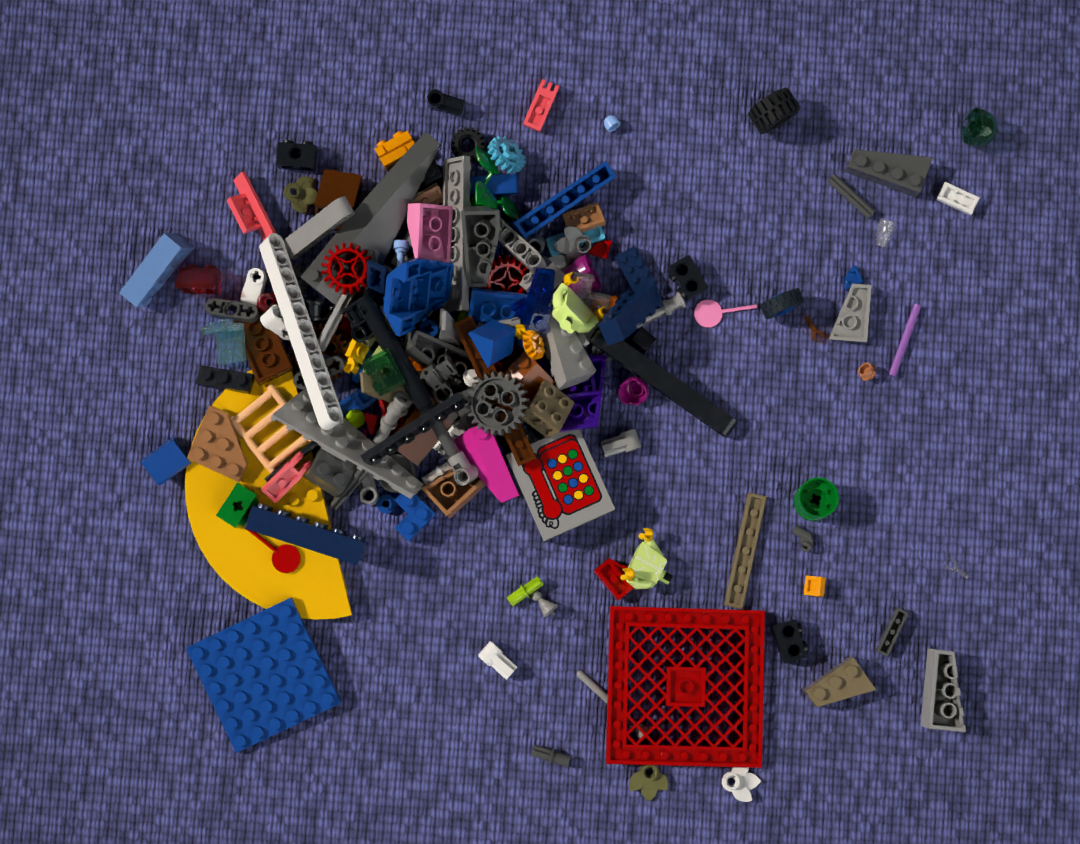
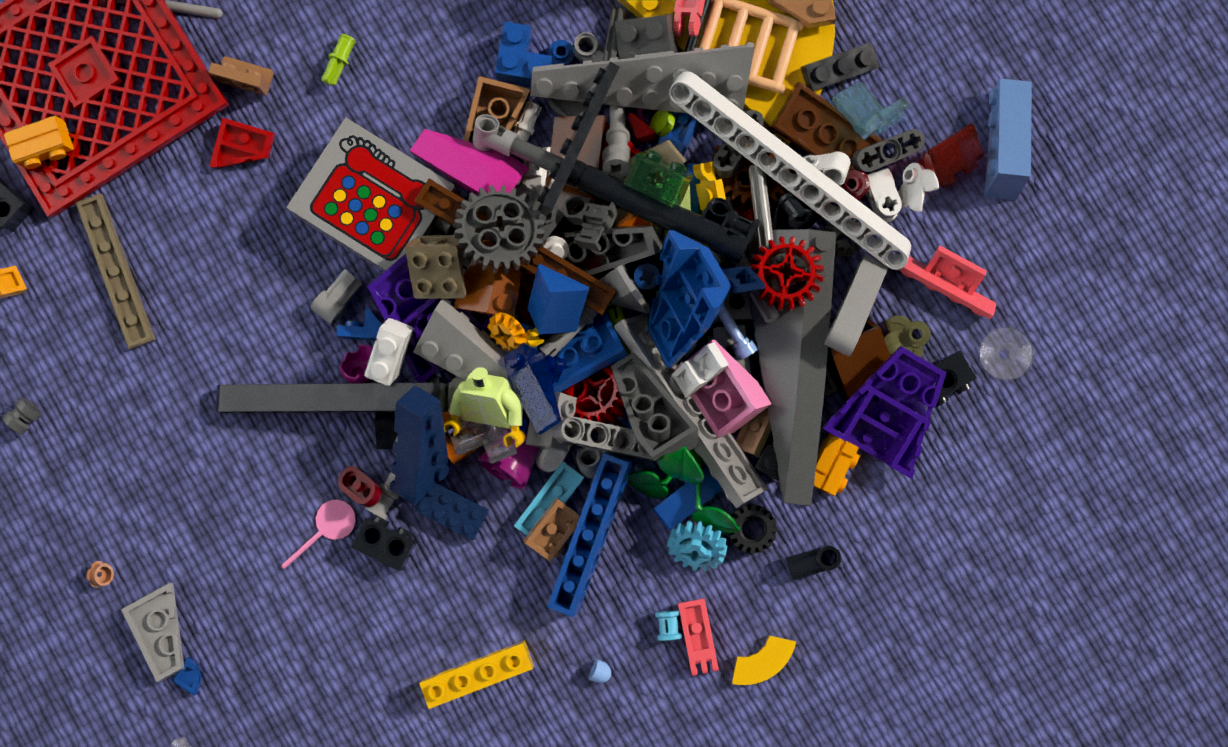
camera: 145 degrees right, 0 degrees up
(231, 277) = (915, 184): none -> white plate
(247, 137) = (1015, 344): none -> clear dish
(340, 154) = (891, 410): none -> dark purple wedge
(435, 249) = (700, 370): none -> white slope
(513, 66) = (764, 663): none -> yellow tile
(546, 606) = (302, 59): light grey piece -> none
(558, 119) = (668, 625): none -> medium azure bush
(570, 244) = (546, 488): dark grey plate -> none
(588, 620) = (242, 75): none -> medium nougat bracket
(601, 249) = (511, 510): red tile -> none
(610, 380) = (389, 351): none -> white brick
(612, 408) = (354, 331): none -> blue slope
(646, 564) = (215, 175): yellowish green torso -> none
(680, 318) = (359, 486): none -> dark red plate
(683, 167) = (476, 674): none -> yellow brick
(740, 656) = (39, 142): none -> light orange brick
(782, 303) = (248, 585): black wheel -> none
(805, 538) = (53, 331): dark grey arm -> none
(813, 329) = (194, 581): clear orange hand -> none
(822, 490) = (48, 382): green wheel -> none
(855, 497) = (22, 415): none -> dark grey wheel
(905, 339) = (79, 643): medium lavender bar -> none

